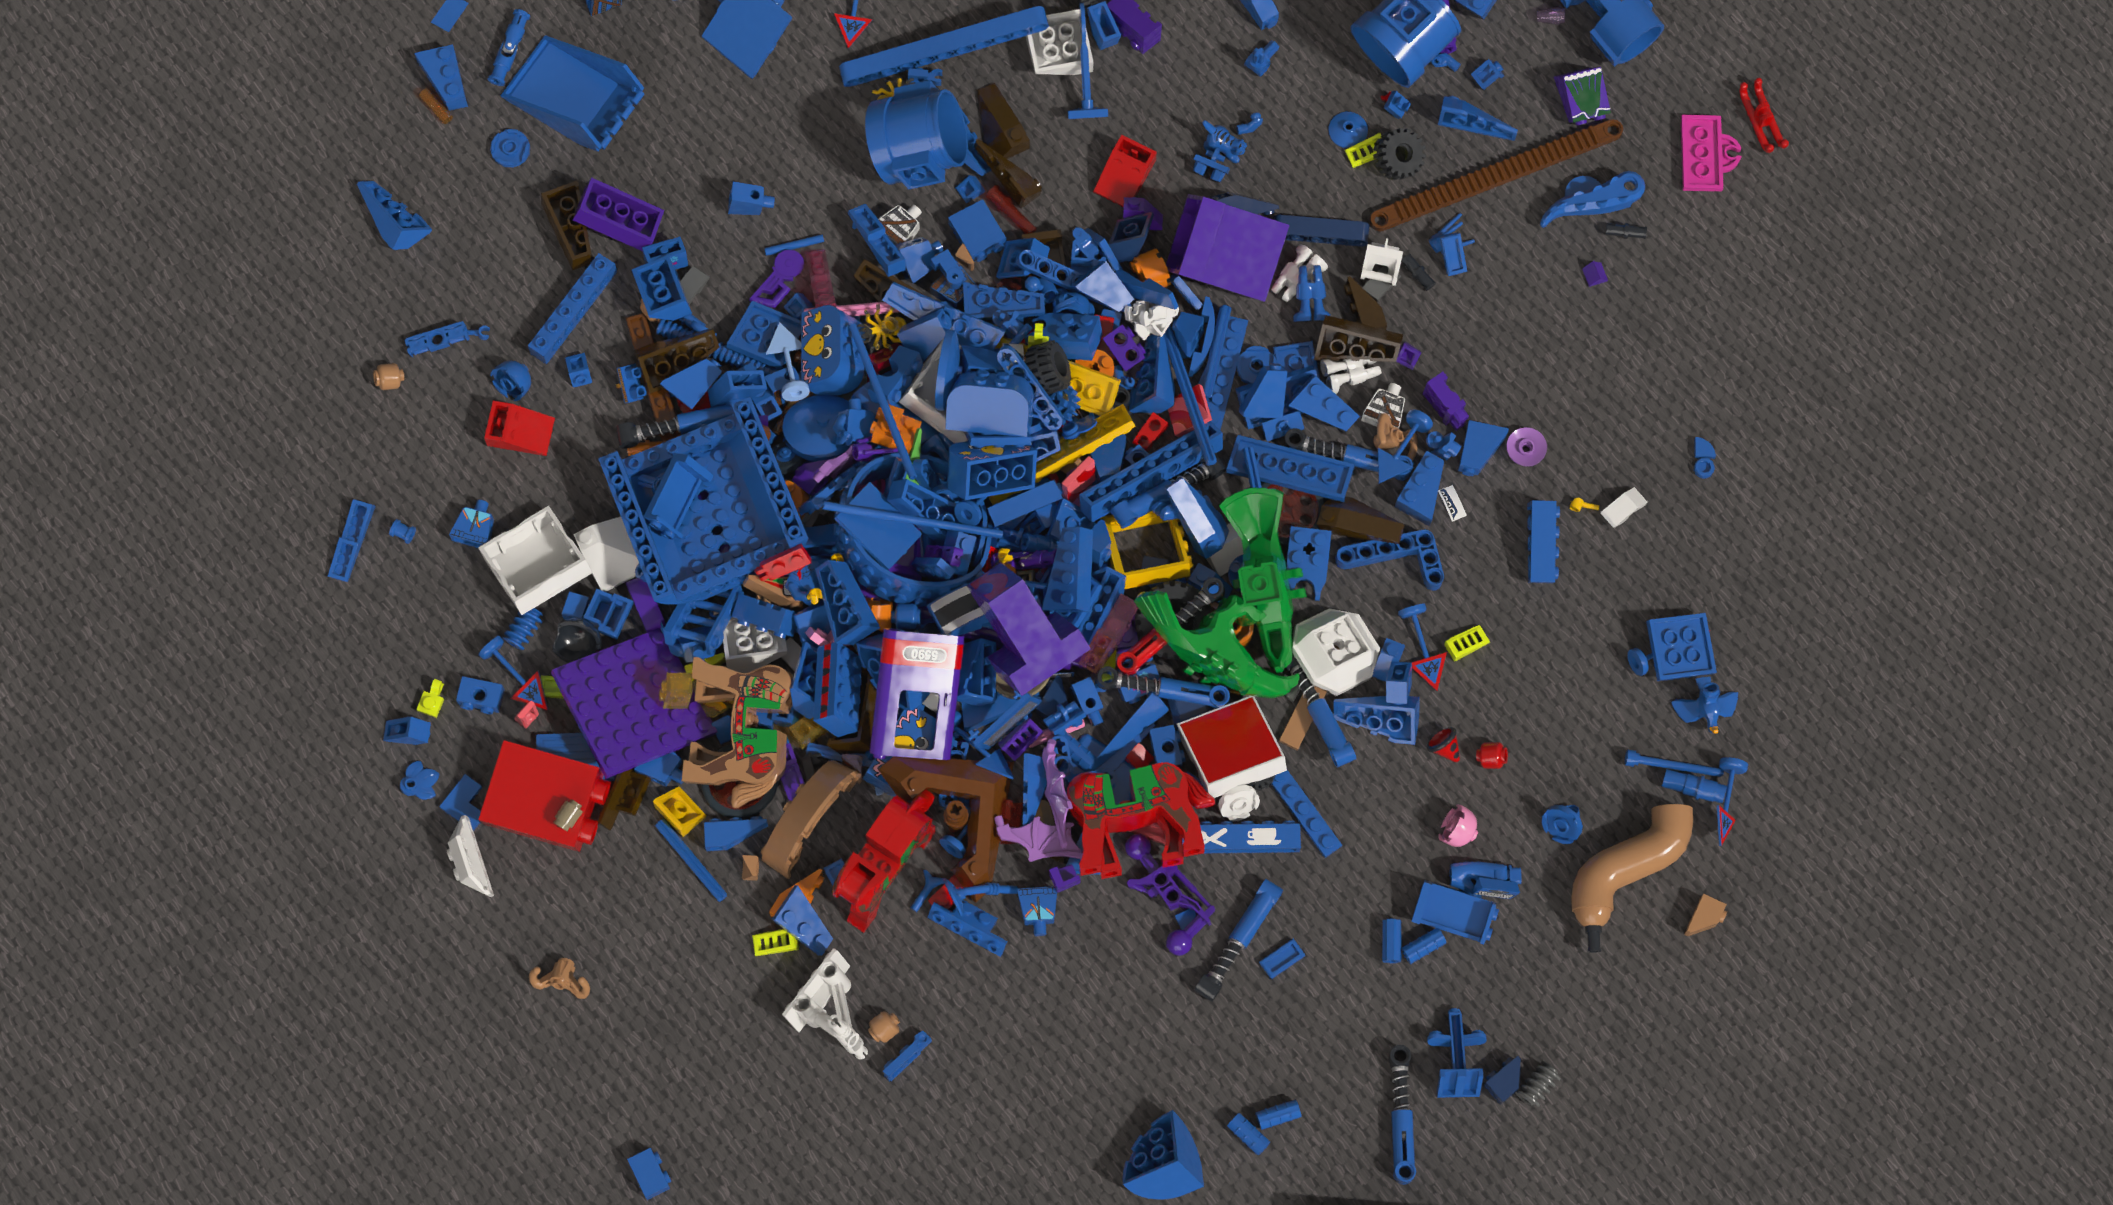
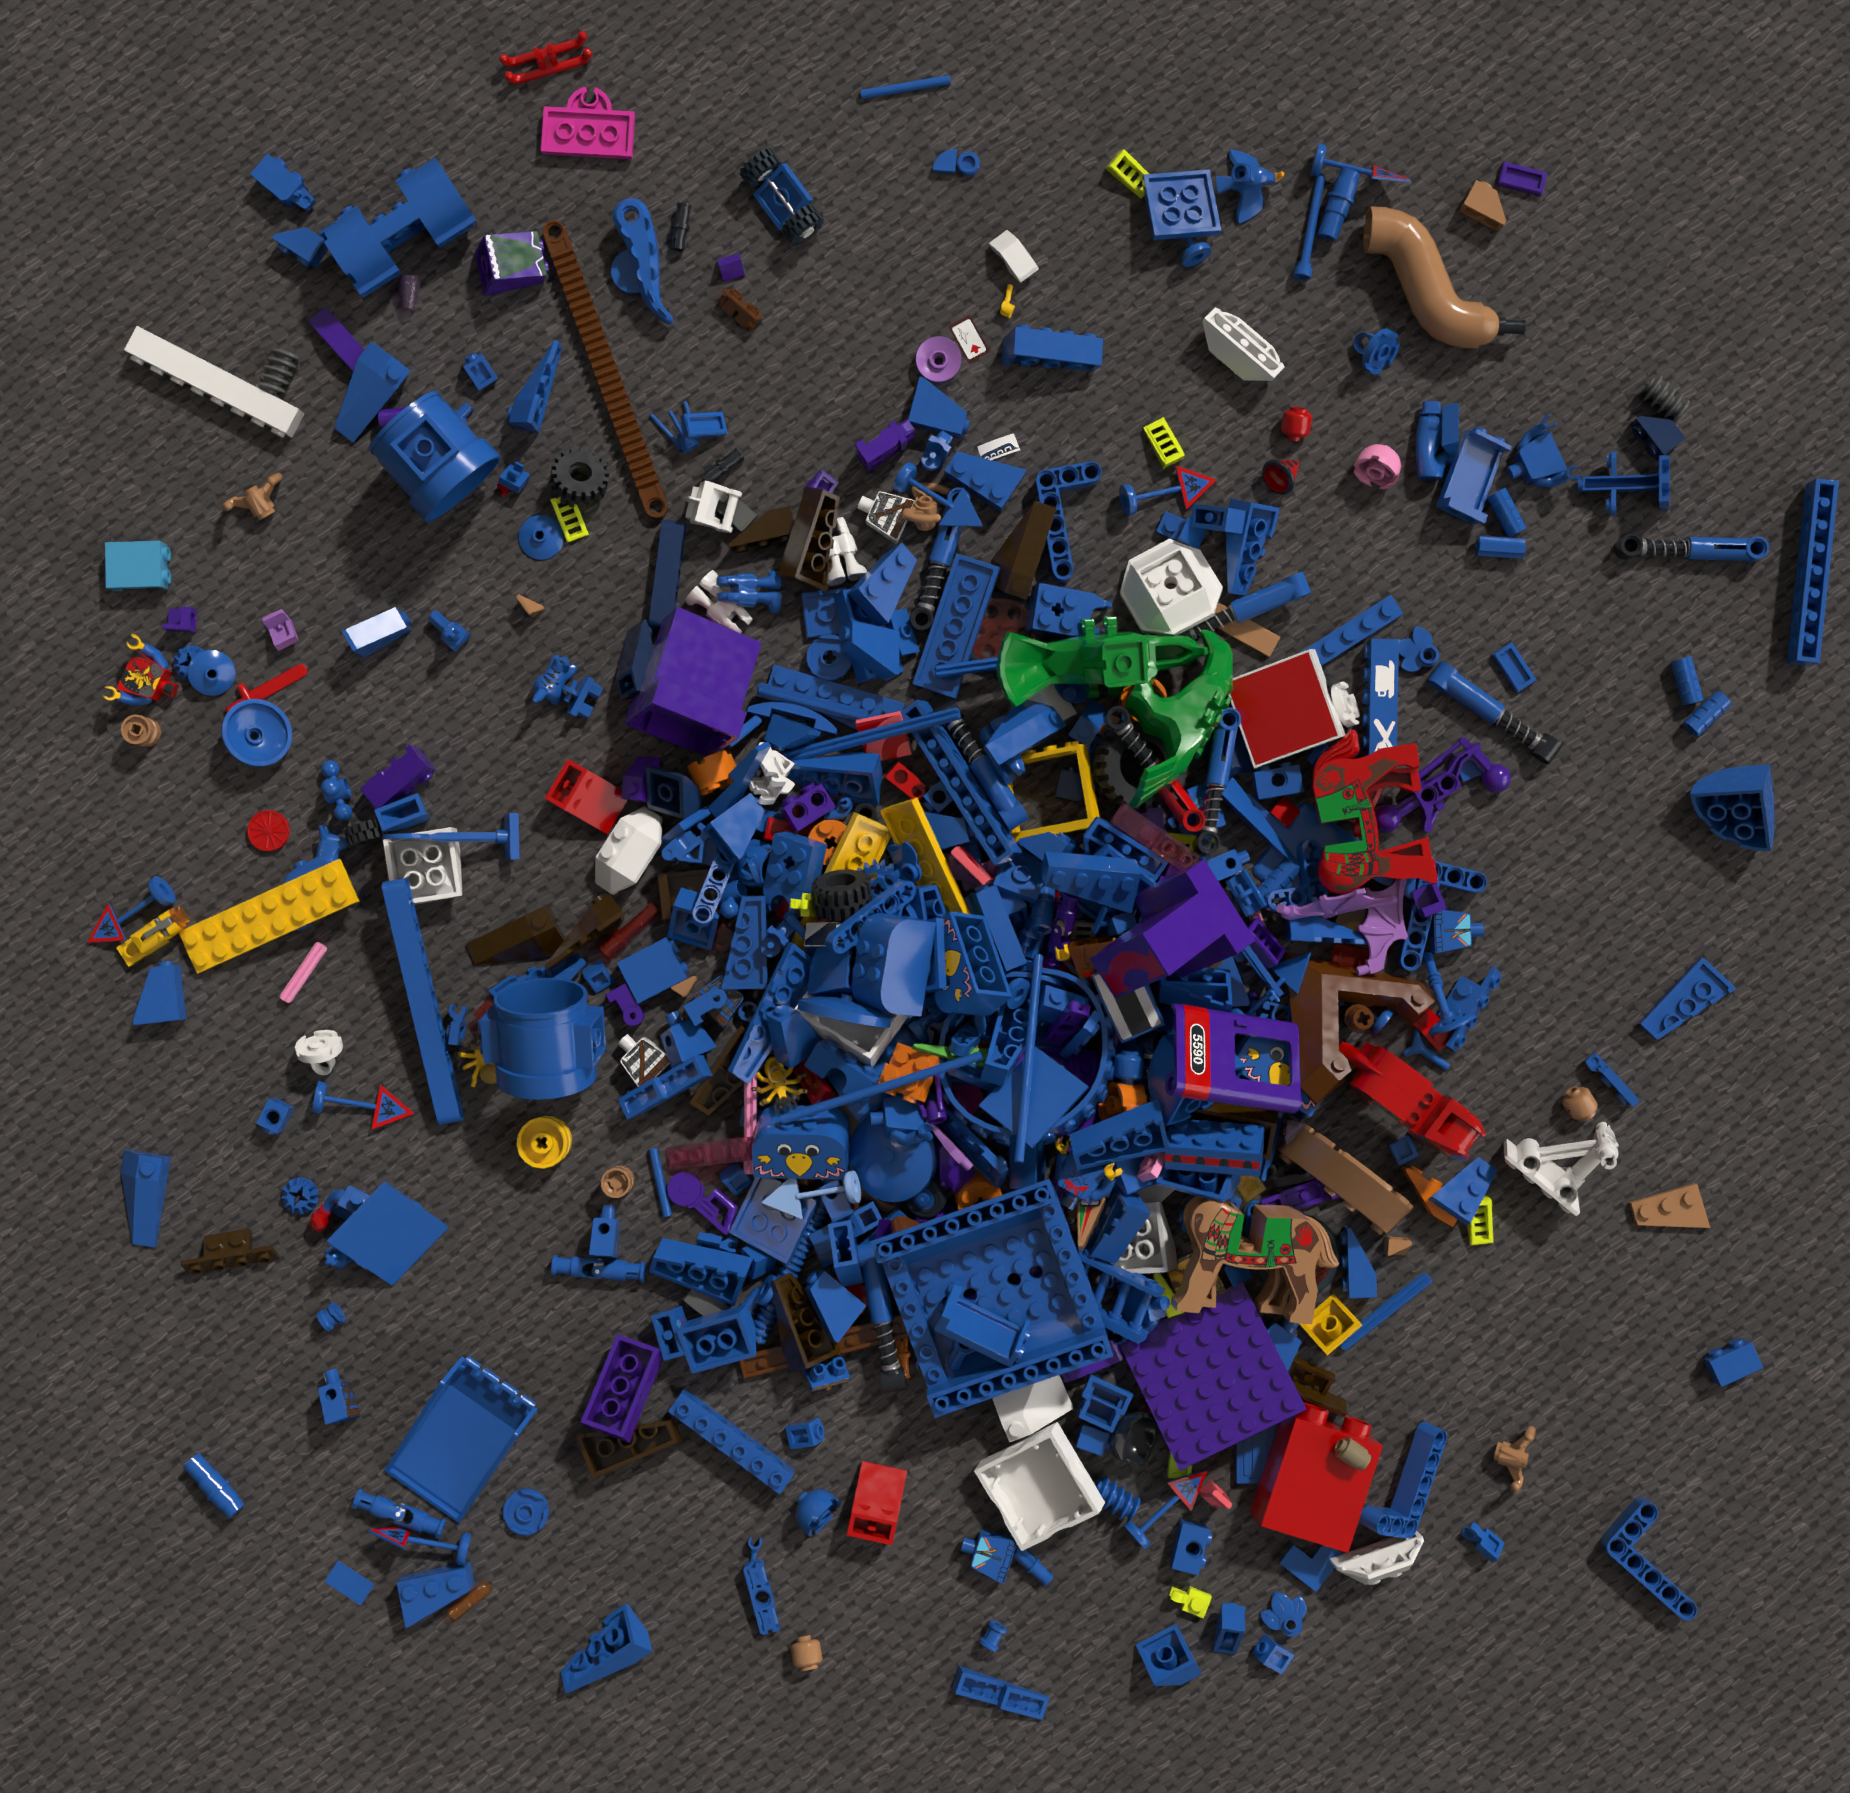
camera: 85 degrees left, 15 degrees up
(381, 680) = (1168, 1658): none -> blue slope
(383, 771) = (1273, 1654): none -> blue bracket
(463, 563) = (1033, 1566): none -> blue axle
(464, 1097) = (1641, 1566): none -> blue beam
(483, 955) = (1487, 1542): none -> blue plate
(491, 45) = (400, 1536): none -> blue piece
(531, 881) = (1413, 1488): none -> blue beam
(676, 690) = (1207, 1329): clear yellow brick -> none
(718, 207) = (611, 1269): none -> blue piece
(720, 278) = (702, 1269): none -> blue wedge
(726, 324) = (761, 1263): none -> blue panel
(740, 287) = (714, 1242): none -> blue plate
(783, 563) = (1070, 1206): hinge -> none
(789, 1117) = (1671, 1208): none -> medium nougat wing
(794, 208) = (617, 1181): none -> medium nougat wheel
(827, 148) = (531, 1146): none -> yellow wheel
(939, 215) = (632, 1011): none -> dark purple leg
(986, 1126) = (1686, 998): none -> blue wing
(1039, 881) = (1421, 929): none -> blue beam
(1081, 205) = (628, 850): none -> white wedge
(1251, 126) = (534, 649): blue arm -> none
(1286, 121) = (531, 607): none -> medium nougat slope
(1294, 869) = (1414, 648): none -> blue plate
(1475, 972) = (1540, 459): none -> blue torso
(1548, 475) = (969, 339): none -> white sticker
(1558, 703) = (1240, 347): none -> white wedge
(1564, 275) = (747, 312): none -> reddish brown hinge
(1658, 310) = (782, 196): none -> plate
(1711, 589) = (1118, 173): none -> neon yellow slope
(1734, 953) = (1522, 178): none -> dark purple tile
(1767, 413) = (905, 87): none -> blue bar

